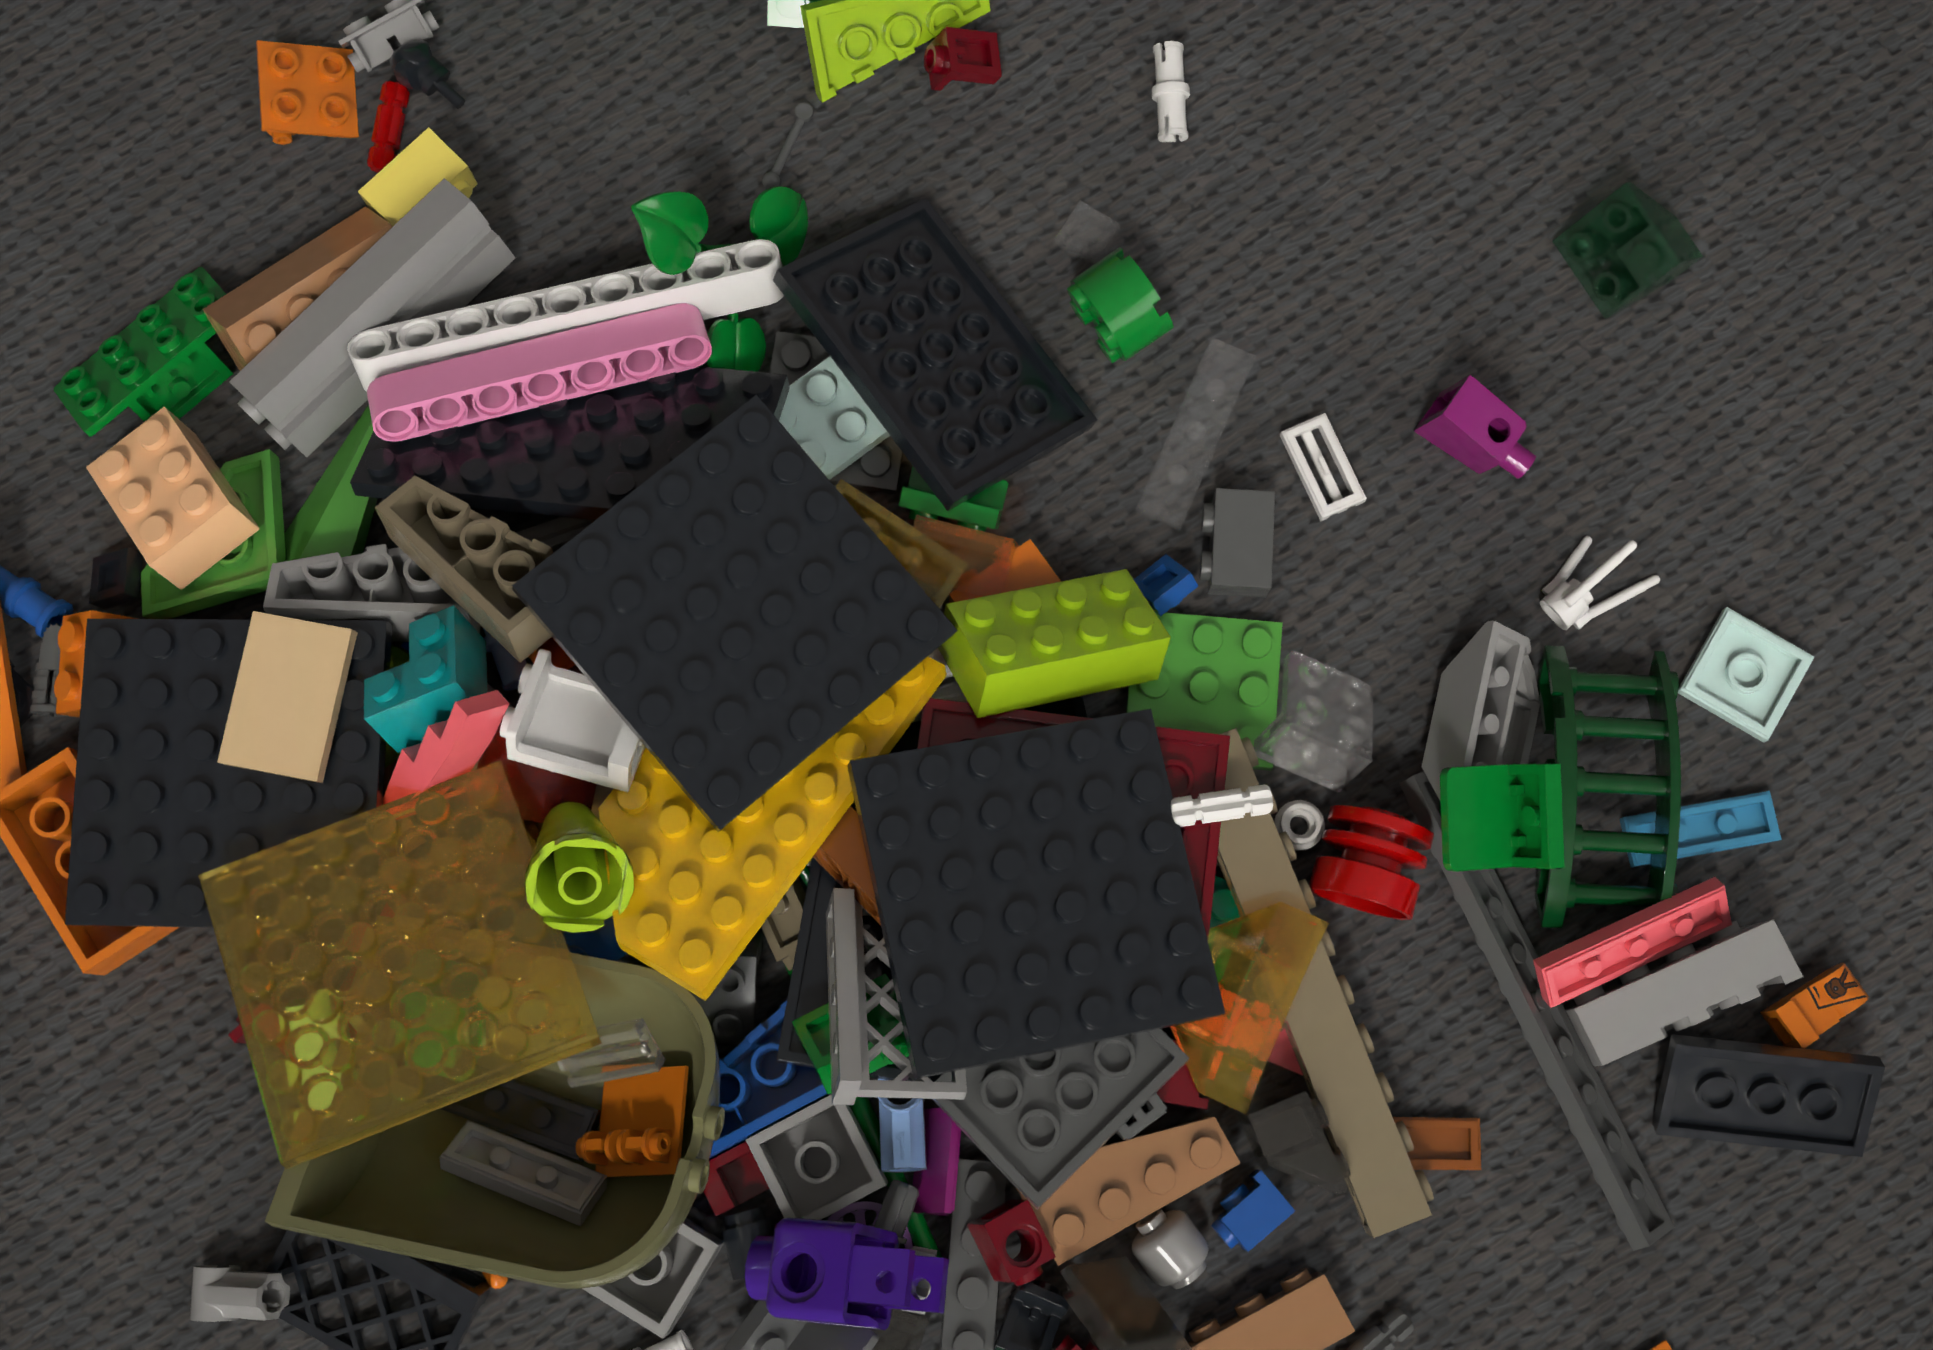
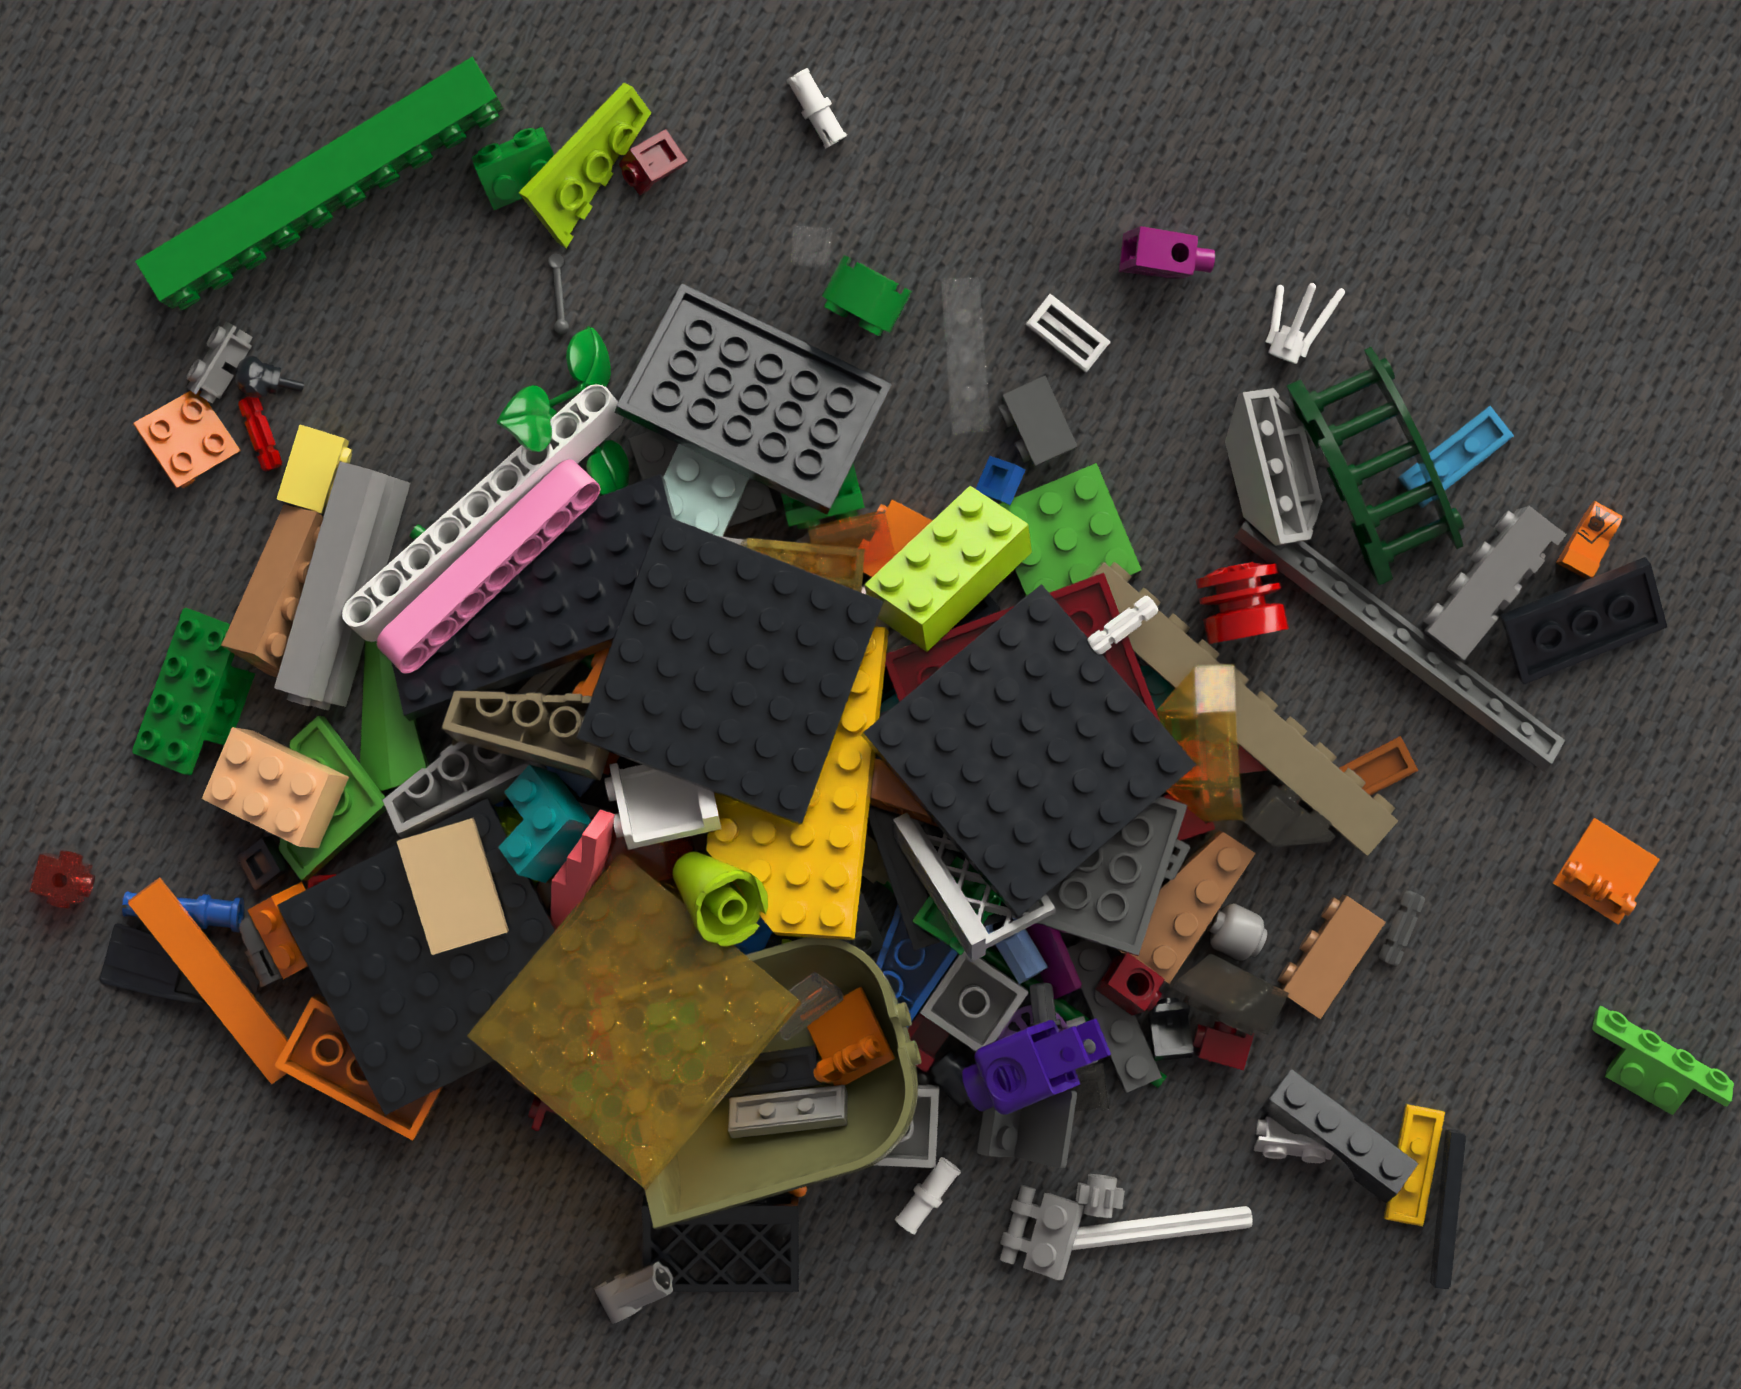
camera: 30 degrees left, 10 degrees up
(1251, 1213) = (1279, 880): blue brick -> none
(1313, 817) = (1190, 593): white plate -> none
(1321, 725) = (1160, 522): clear bracket -> none
(1502, 817) = (1313, 530): green bracket -> none
(1626, 249) = (1204, 59): clear green slope -> none
(1632, 942) = (1445, 565): coral tile -> none
(1745, 674) = (1435, 329): light aqua tile -> none

